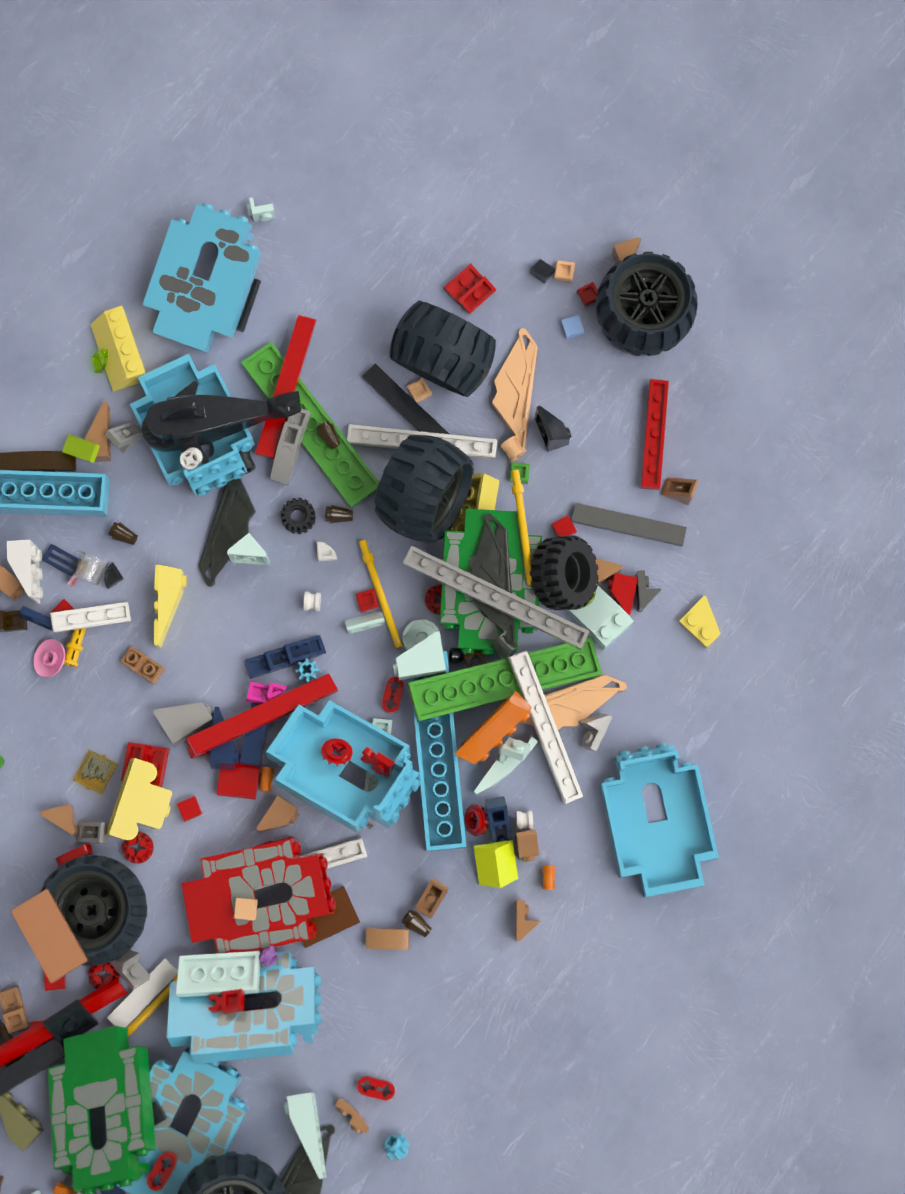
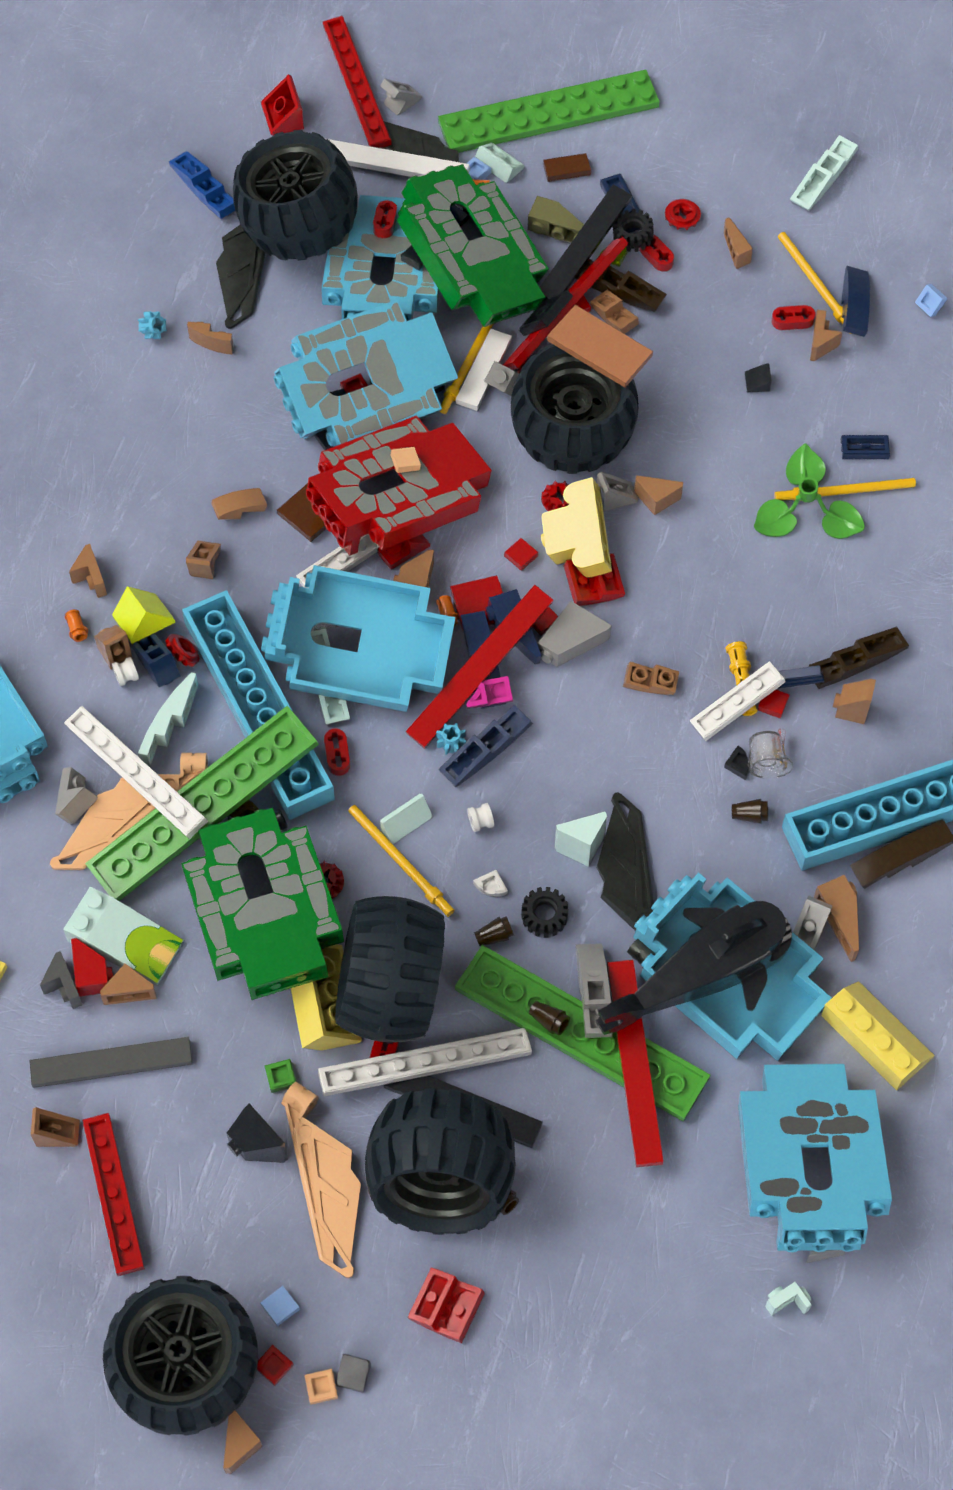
camera: 160 degrees right, 15 degrees down
(24, 560) = (842, 722): white slope -> none
(49, 658) = (762, 642): bright pink dish -> none
(52, 547) = (808, 762): dark blue tile -> none
(81, 448) = (853, 880): lime tile -> none
(83, 850) = (626, 462): red beam -> none
(95, 772) = (646, 555): piece -> none
(100, 360) = (894, 1009): clear neon green tile -> none
(169, 588) = (662, 761): light yellow wedge -> none
(188, 461) = (704, 900): white wheel -> none
(217, 973) = (406, 393): light aqua plate -> none
(230, 1002) = (380, 365): red plate -> none
(249, 304) = (737, 1150): black bar -> none
(268, 956) = (360, 426): medium lavender plate -> none
(304, 1117) = (251, 302): light aqua slope -> none
(337, 745) = (361, 650): red gear -> none
(367, 600) = (414, 847): red tile -> none
(375, 1093) = (195, 371): red beam -> none
(380, 763) = (314, 650): red plate -> none
(416, 923) = (212, 529): dark brown cone -> none
(418, 631) = (329, 828): light aqua tile -> none
(422, 659) = (312, 779): light aqua slope -> none
(493, 566) = (254, 886): pearl dark grey wing -> none
(494, 728) = (196, 741): orange slope -> none
(496, 597) = (244, 863): light grey plate -> none
(513, 748) = (162, 729): light aqua bracket -> none
(518, 490) = (265, 1006): yellow bar -> none
(564, 527) = (195, 1025): red tile -> none
(564, 573) = (170, 938): black tyre -> none

